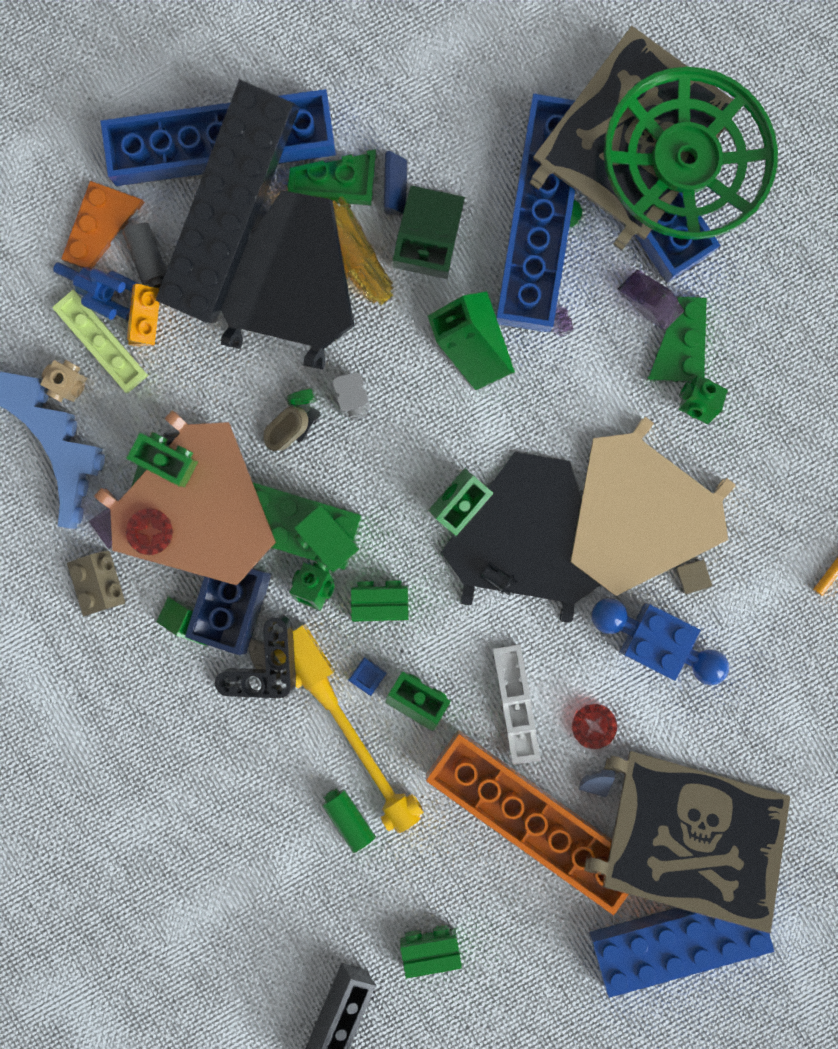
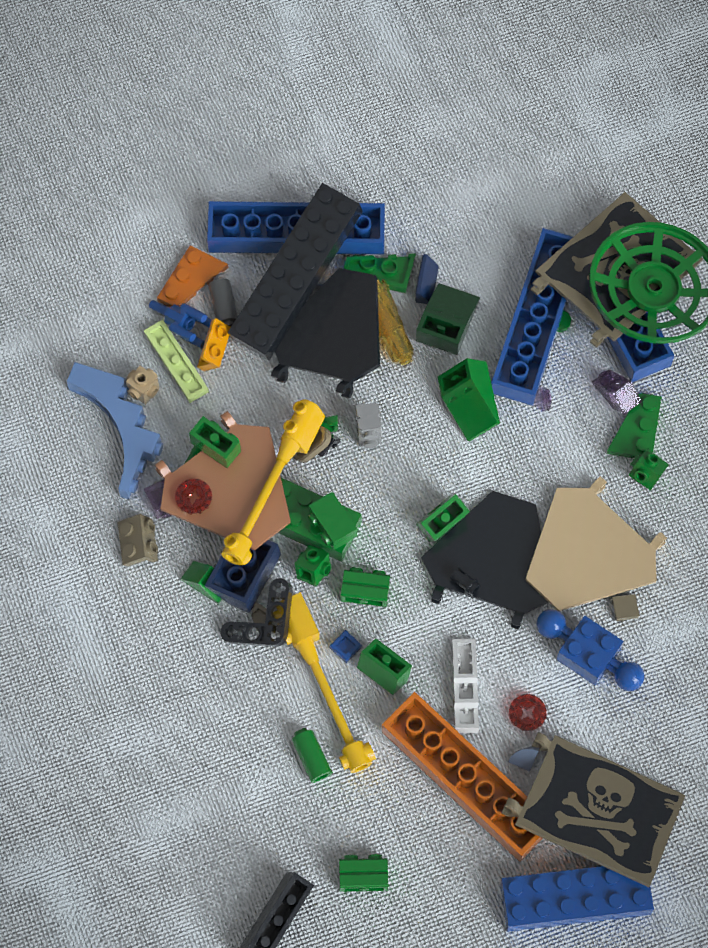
camera: 10 degrees right, 20 degrees down
(265, 428) = (297, 437): none -> yellow bar

